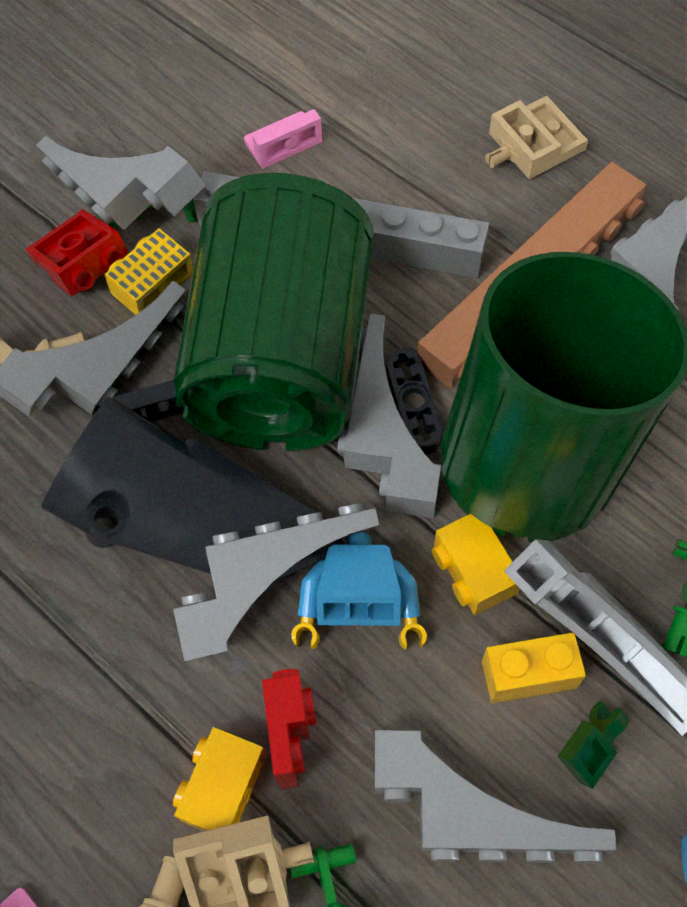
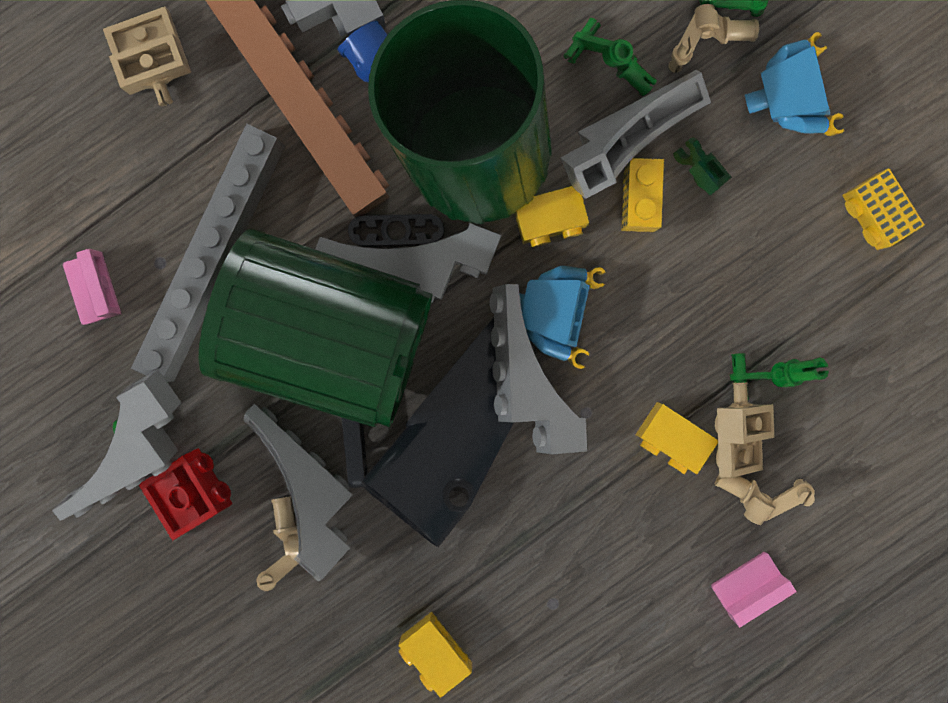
camera: 85 degrees left, 25 degrees up
(148, 271) = (223, 433): yellow brick -> none
(288, 716) = (644, 381): red plate -> none
(467, 820) = (738, 270): light grey arch -> none

